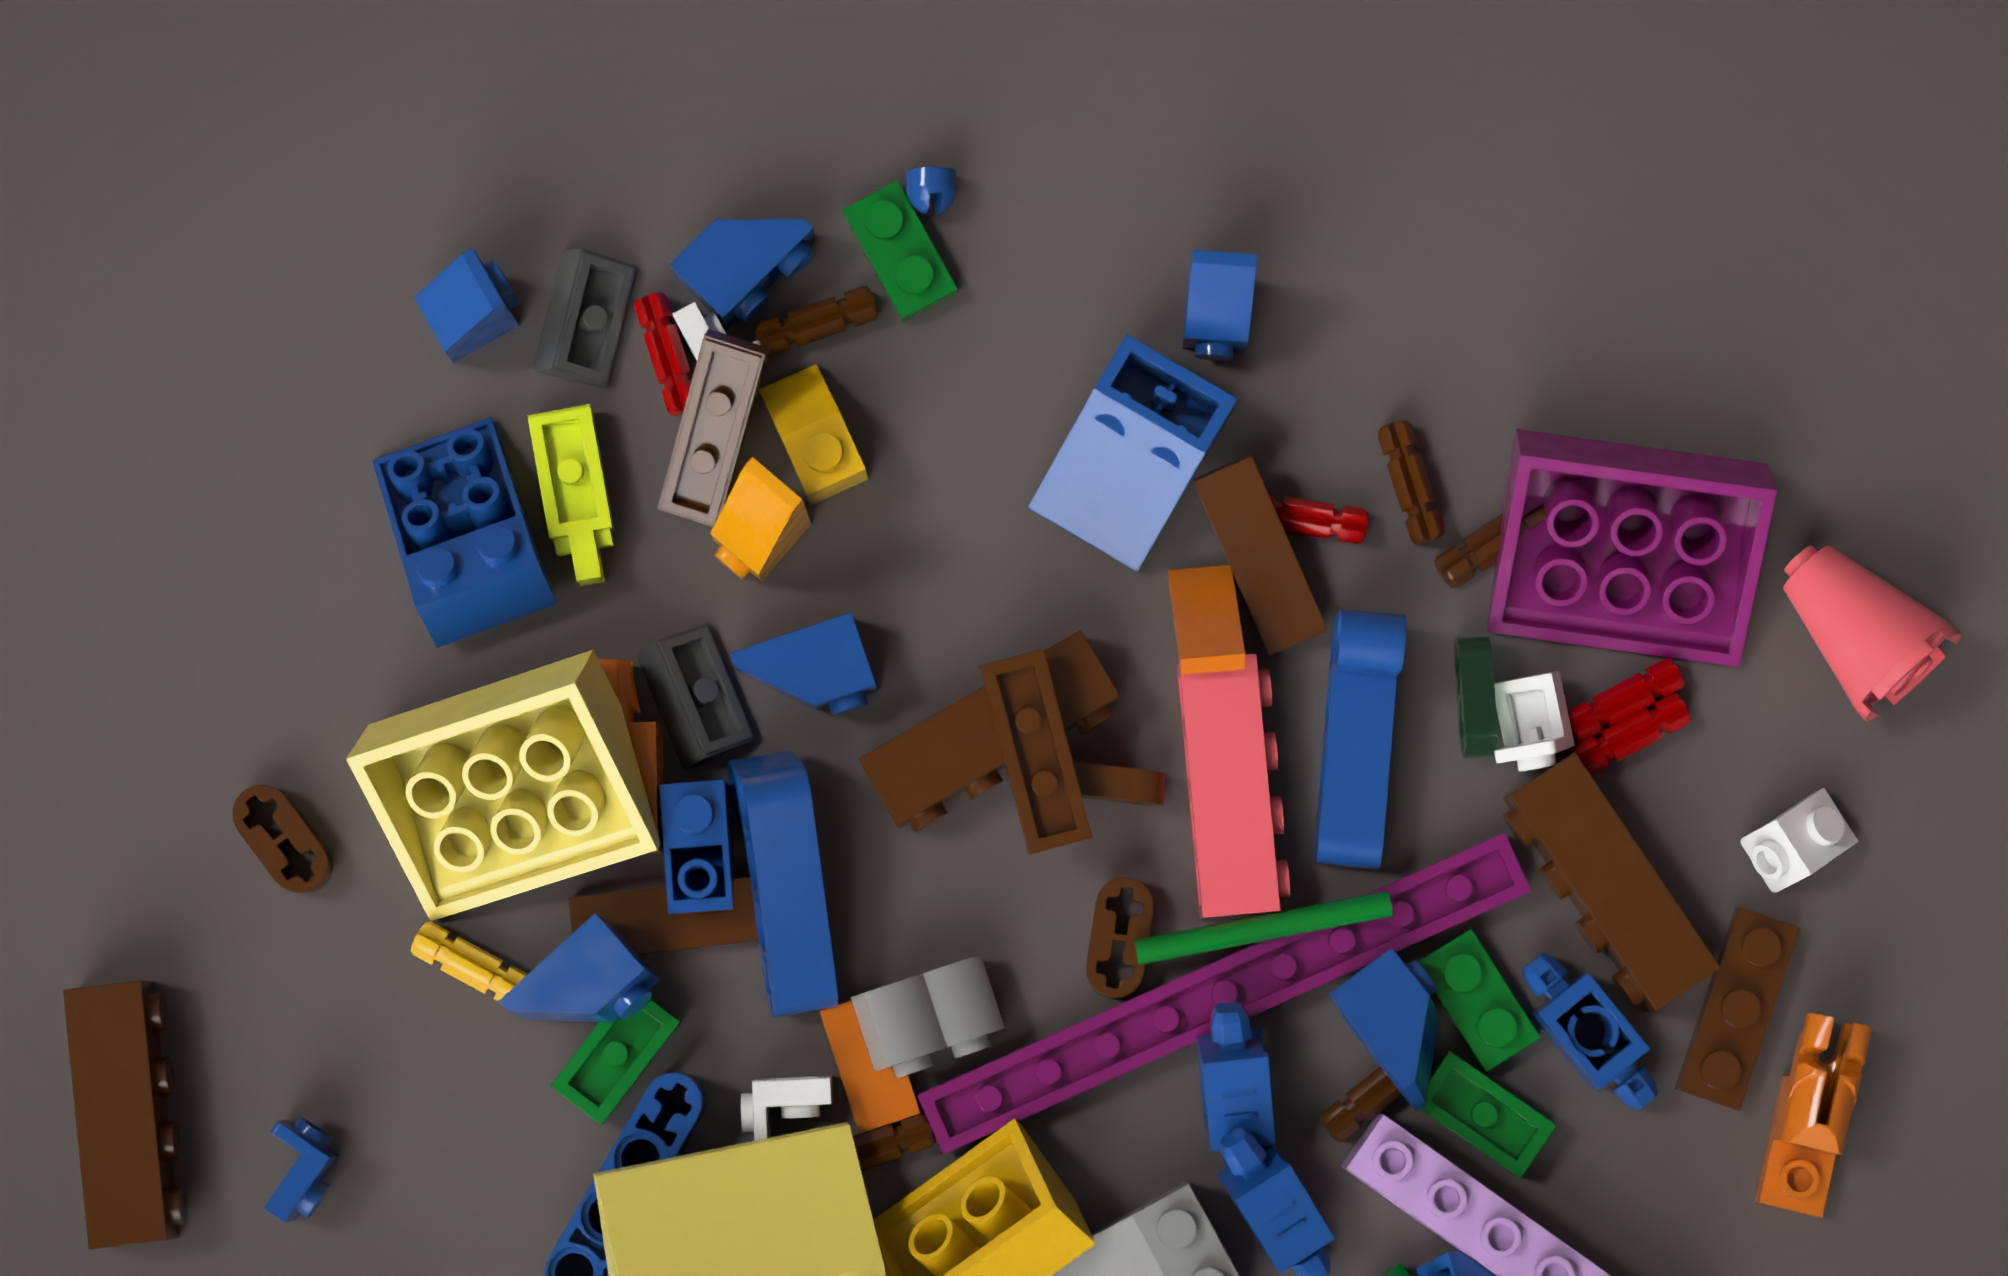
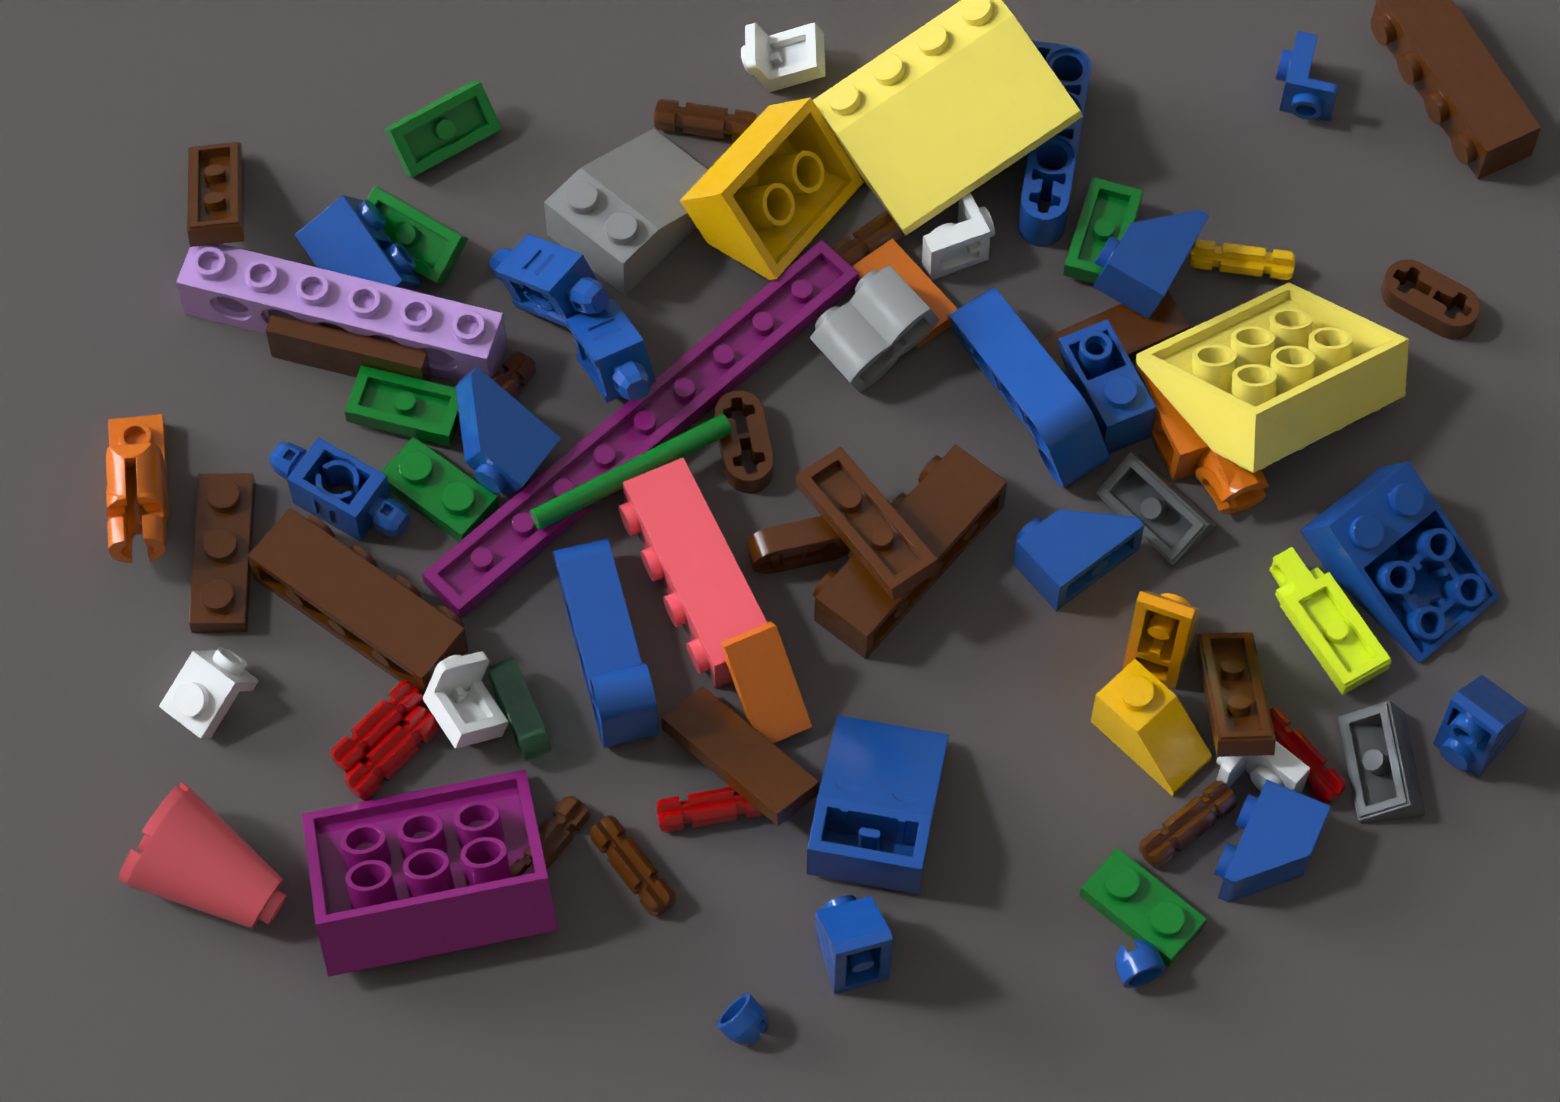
camera: 160 degrees right, 20 degrees down
(1356, 274) = (743, 1020): none -> blue hinge
(1530, 1202) = (341, 350): none -> reddish brown tile

